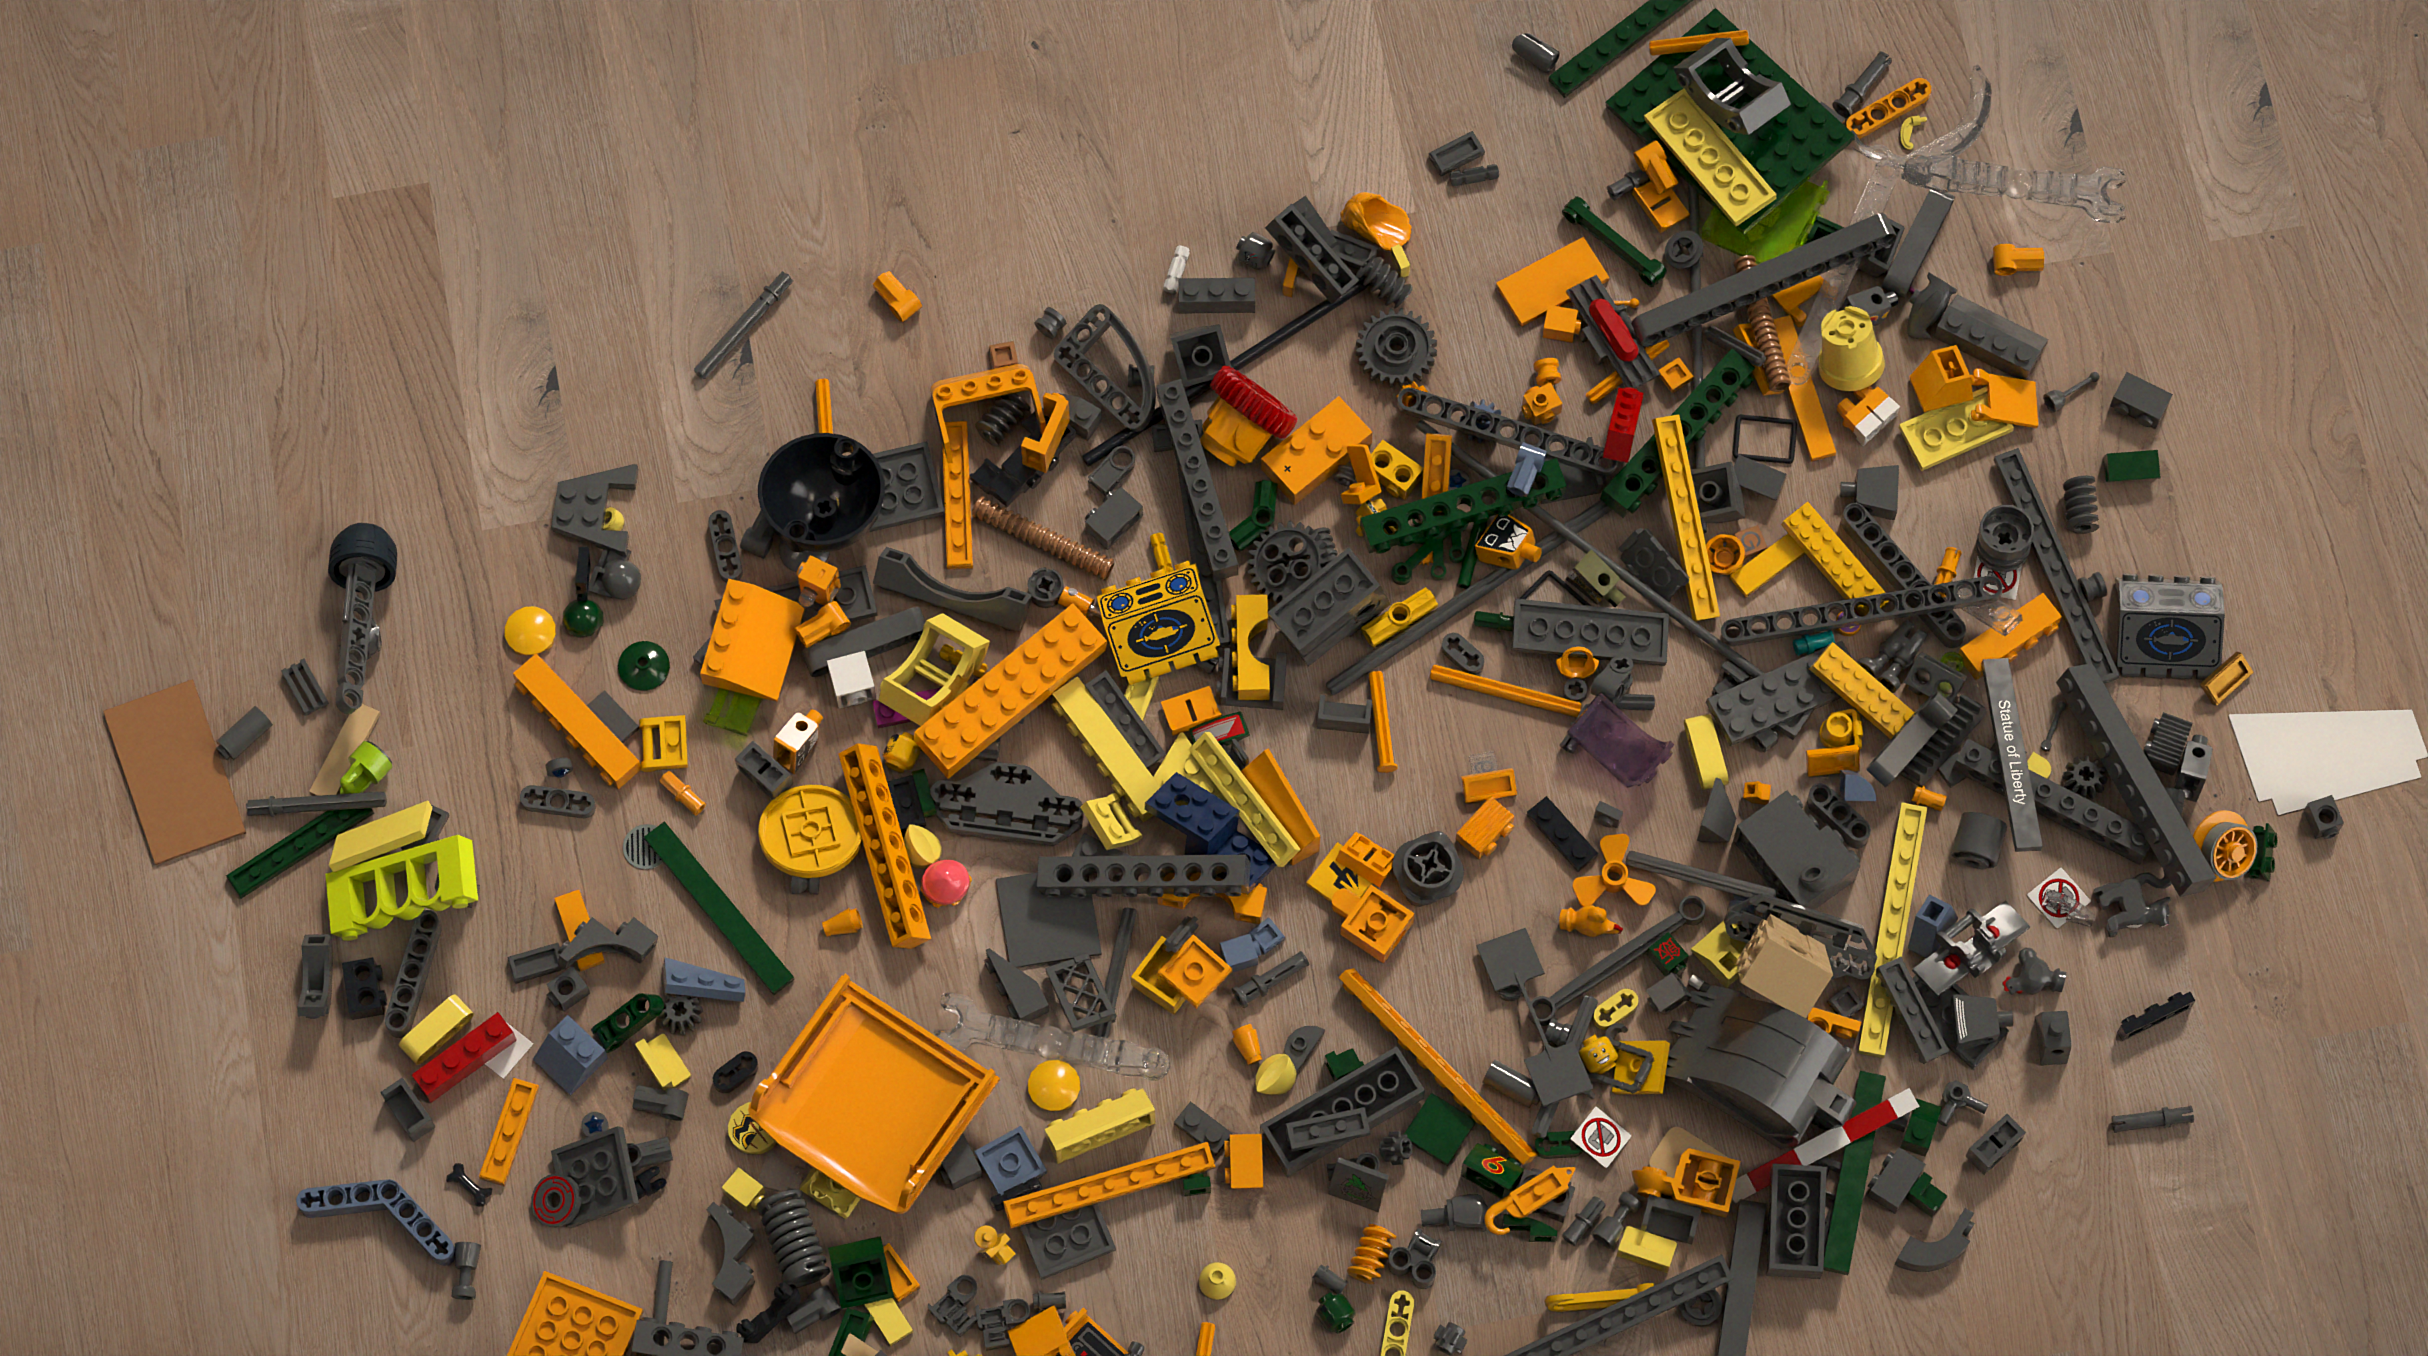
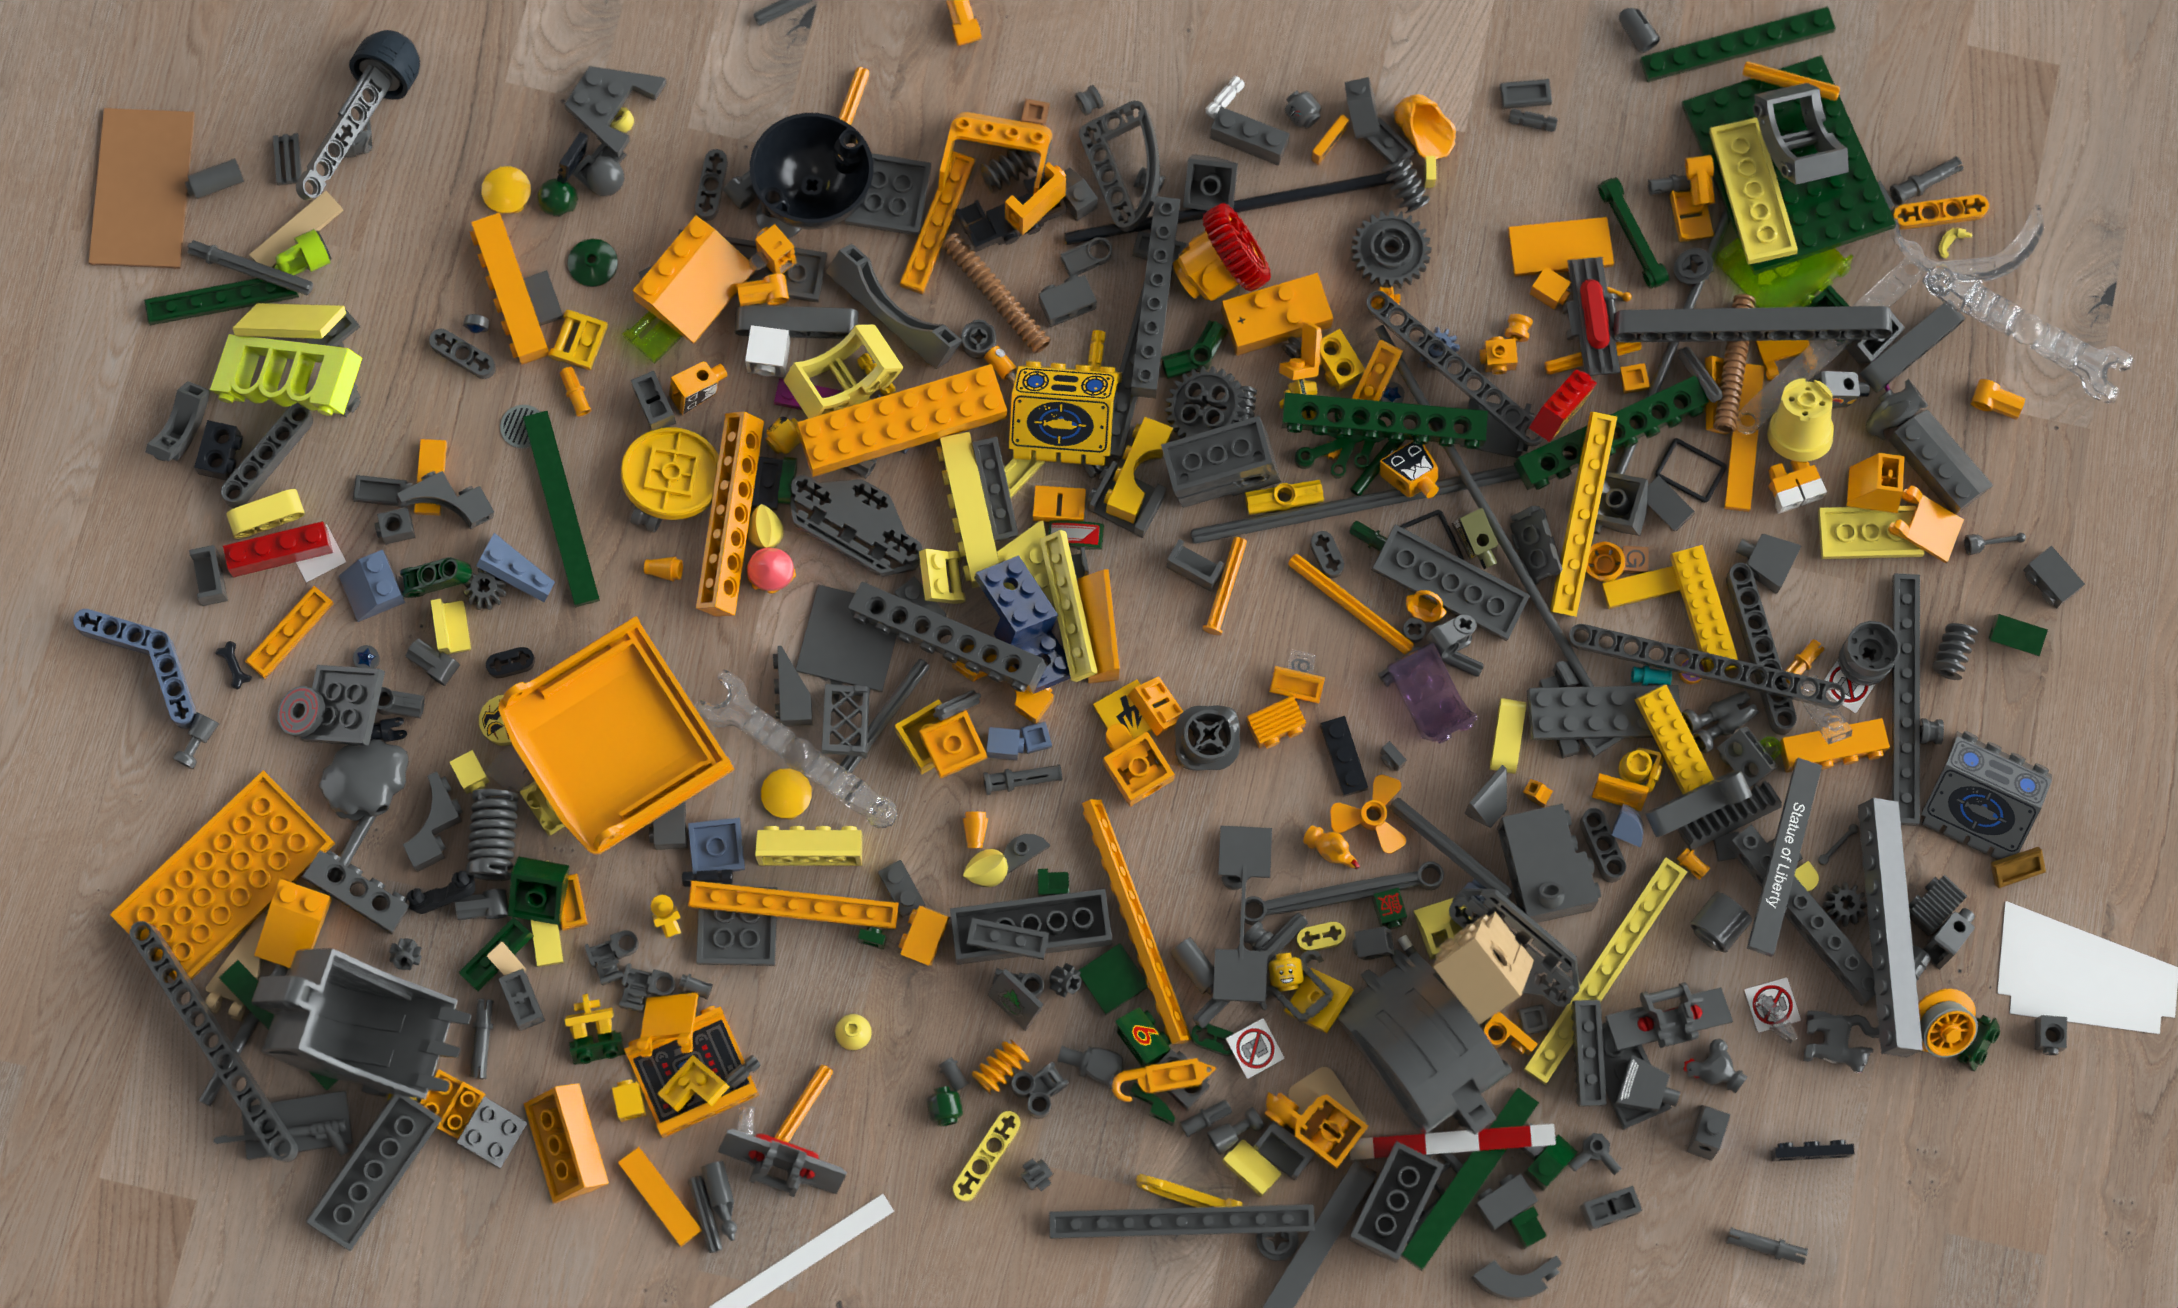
camera: 20 degrees right, 5 degrees up
(646, 1238) = (364, 779): none -> dark grey piece
(1311, 253) = (1349, 132): dark grey brick -> none
(1528, 463) = (1458, 405): sand blue piece -> none
(1931, 918) = (1642, 977): sand blue slope -> none

